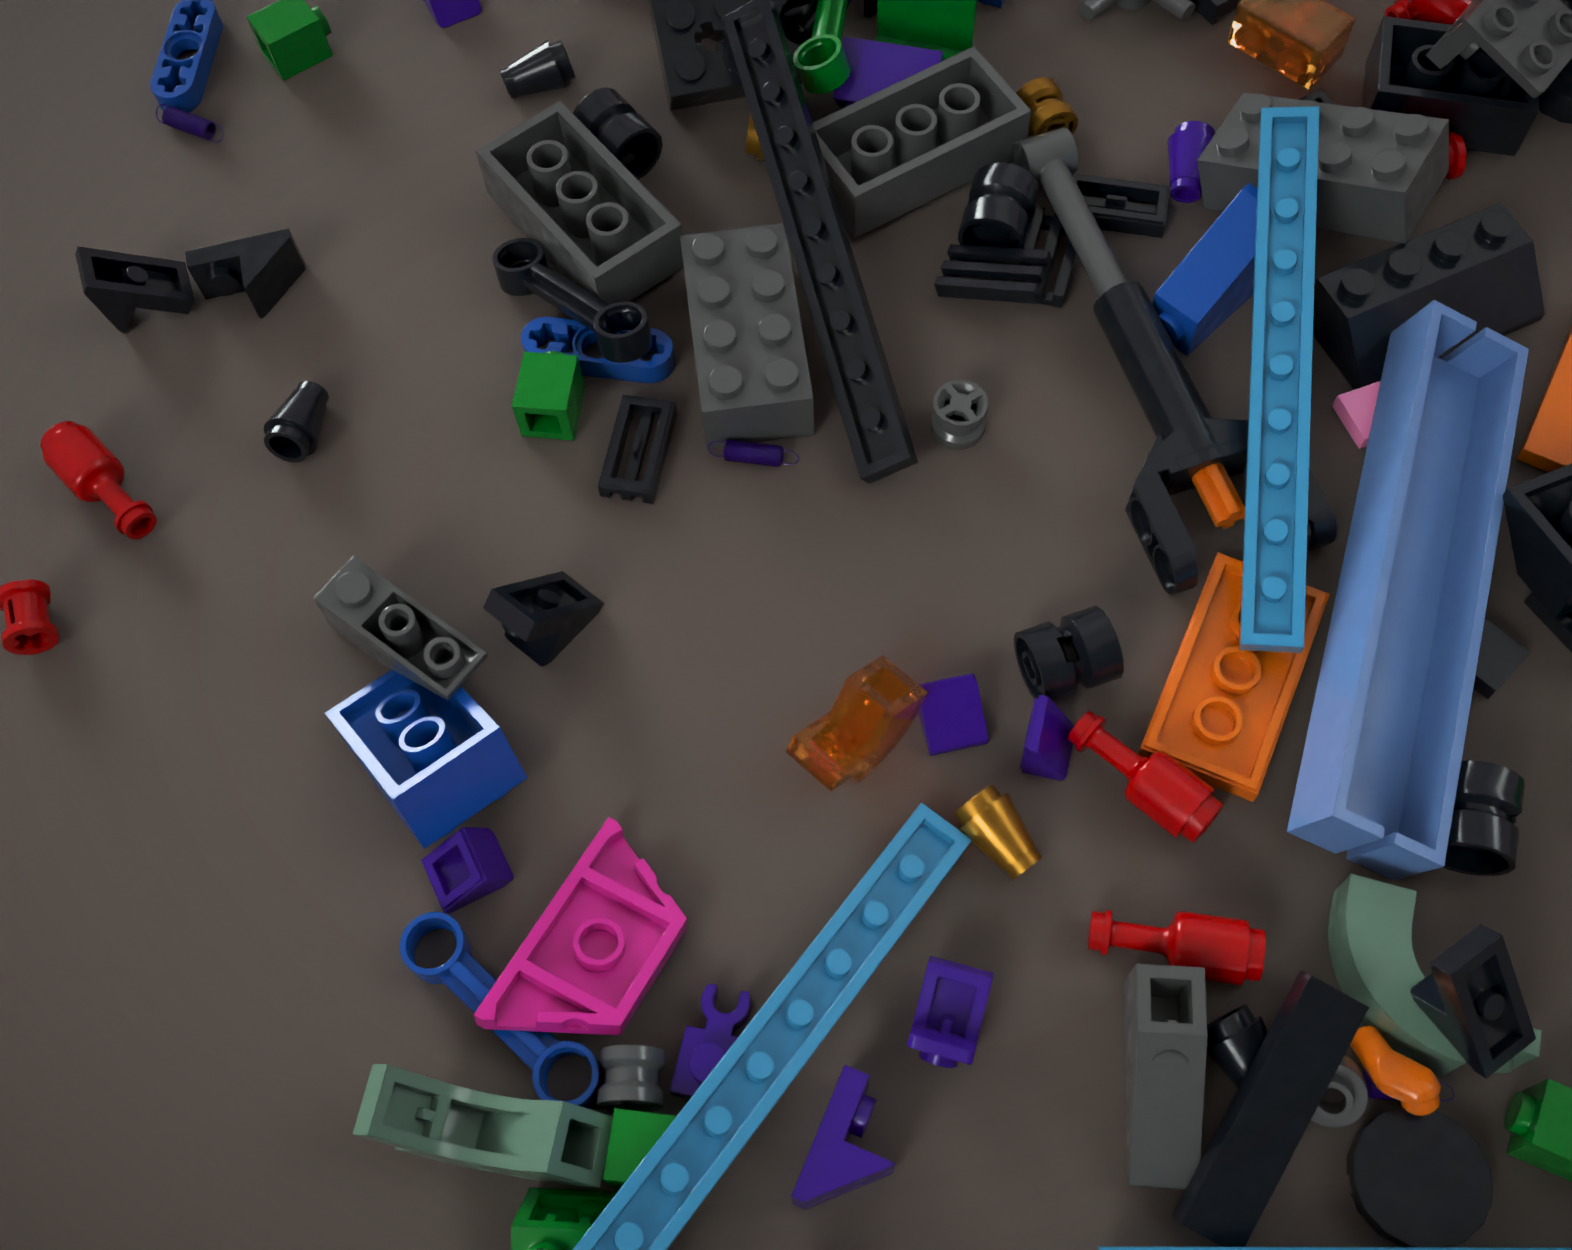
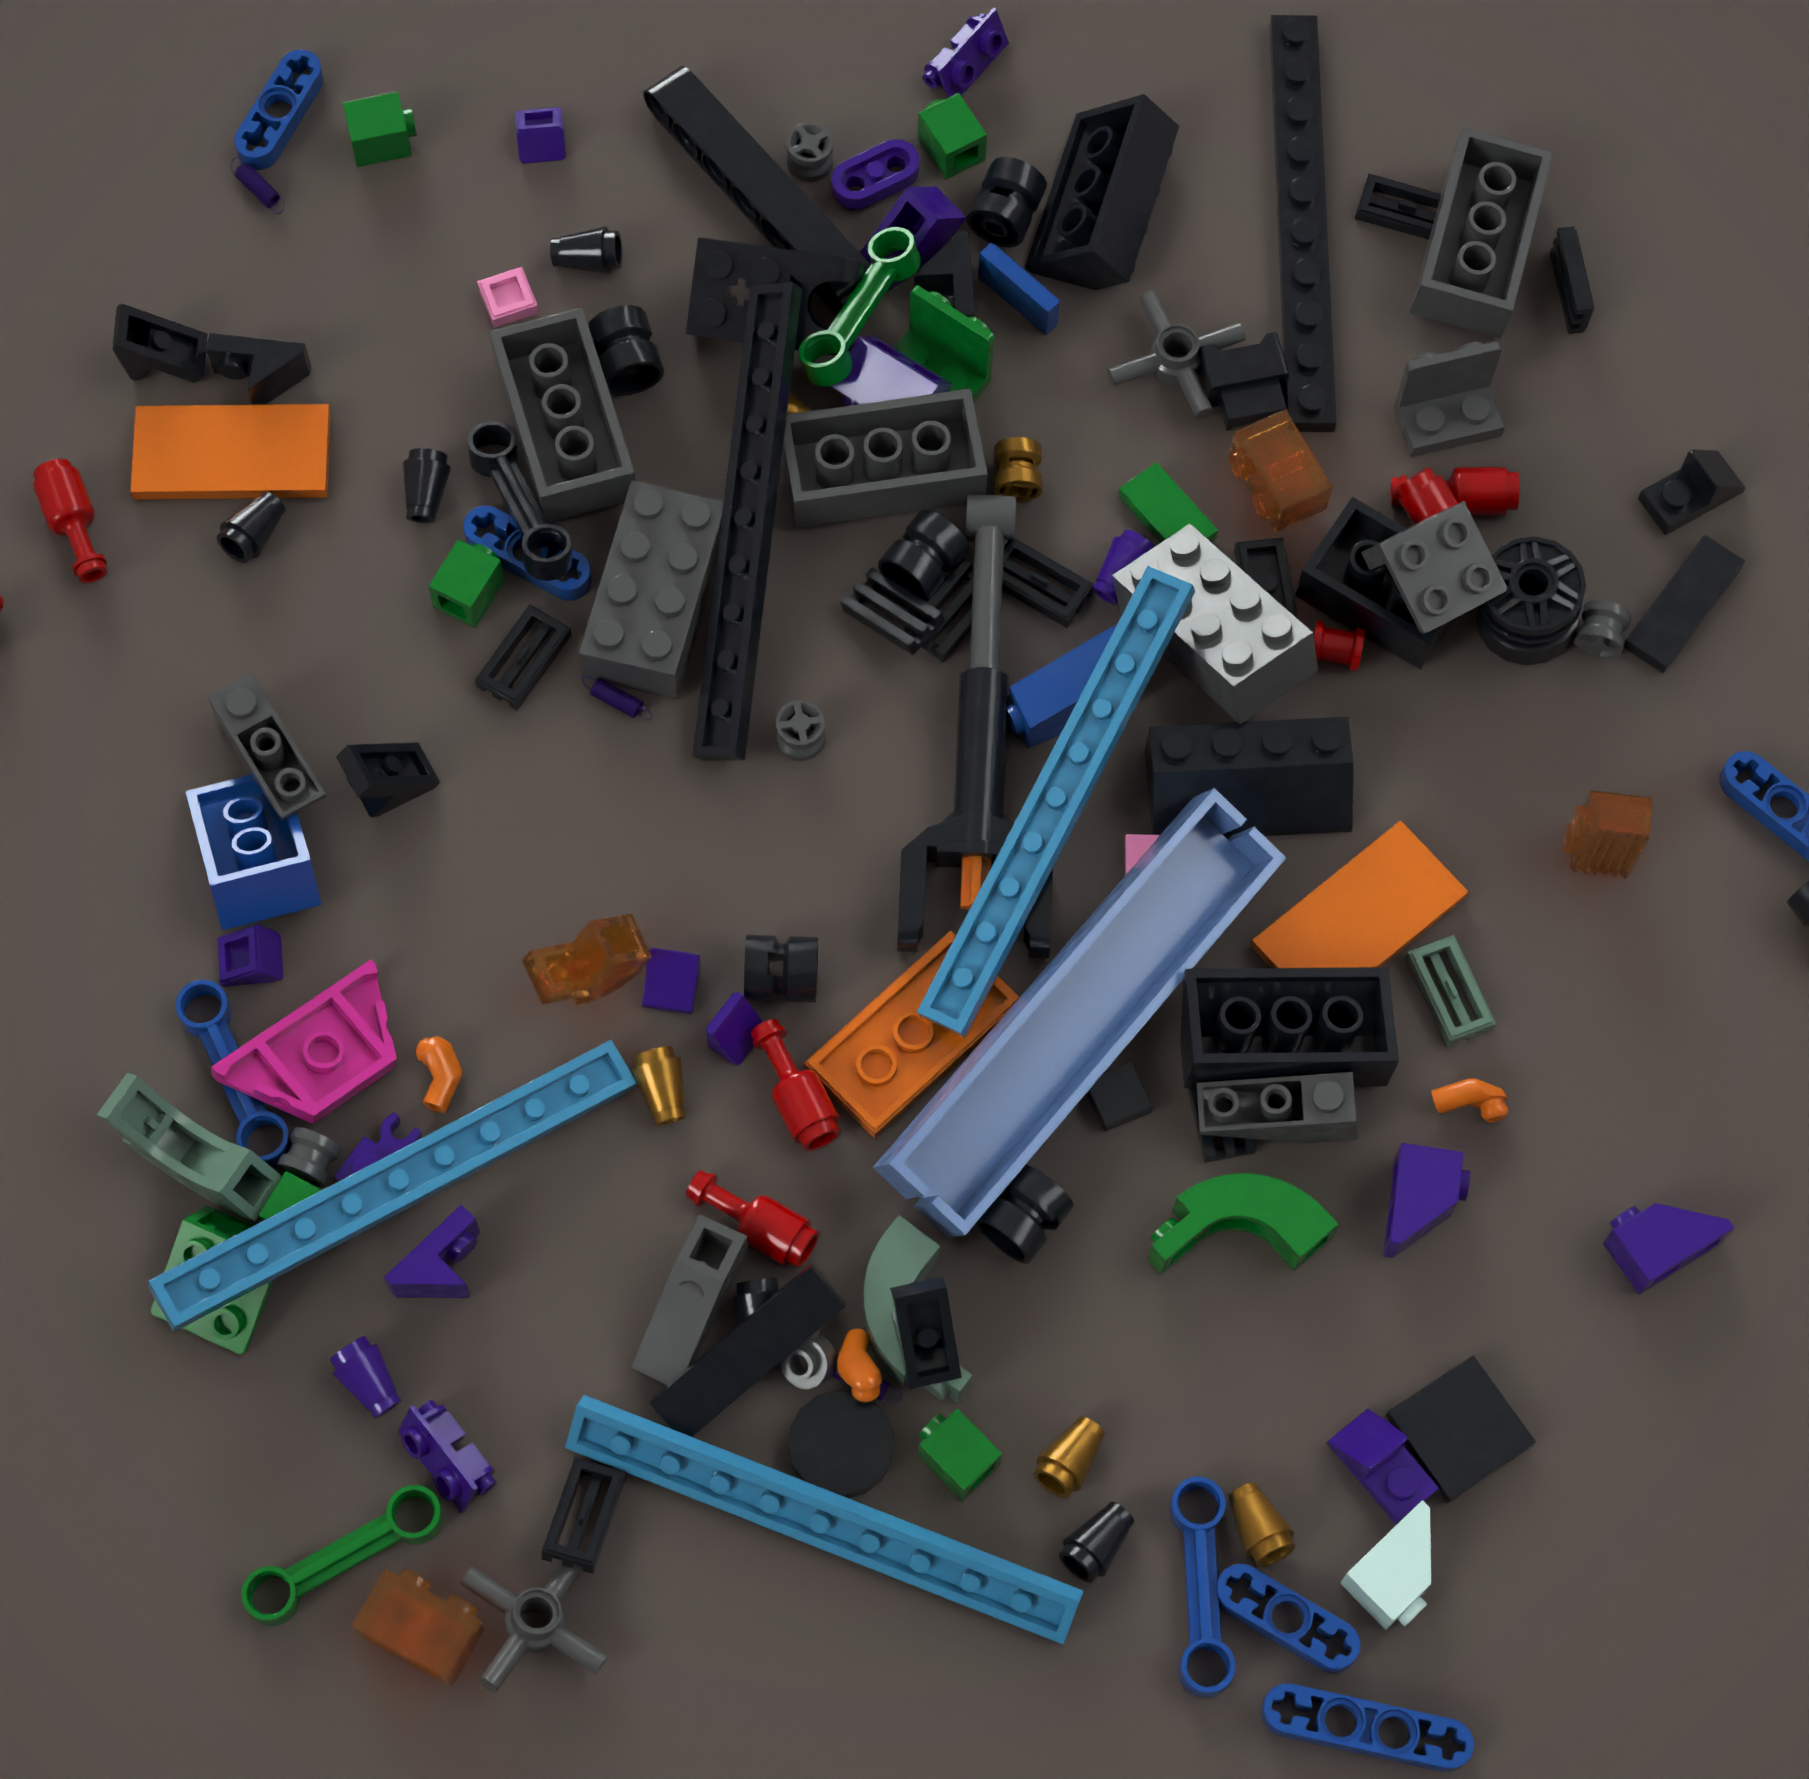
camera: 15 degrees right, 5 degrees up
(247, 362) = (230, 451): none -> orange tile
(465, 319) = (424, 483): none -> black cone
(472, 133) = (508, 297): none -> bright pink tile
(746, 909) = (445, 1070): none -> orange arm
(949, 1012) = (559, 1200): dark purple bracket -> none
(1186, 98) = (1163, 505): none -> green tile

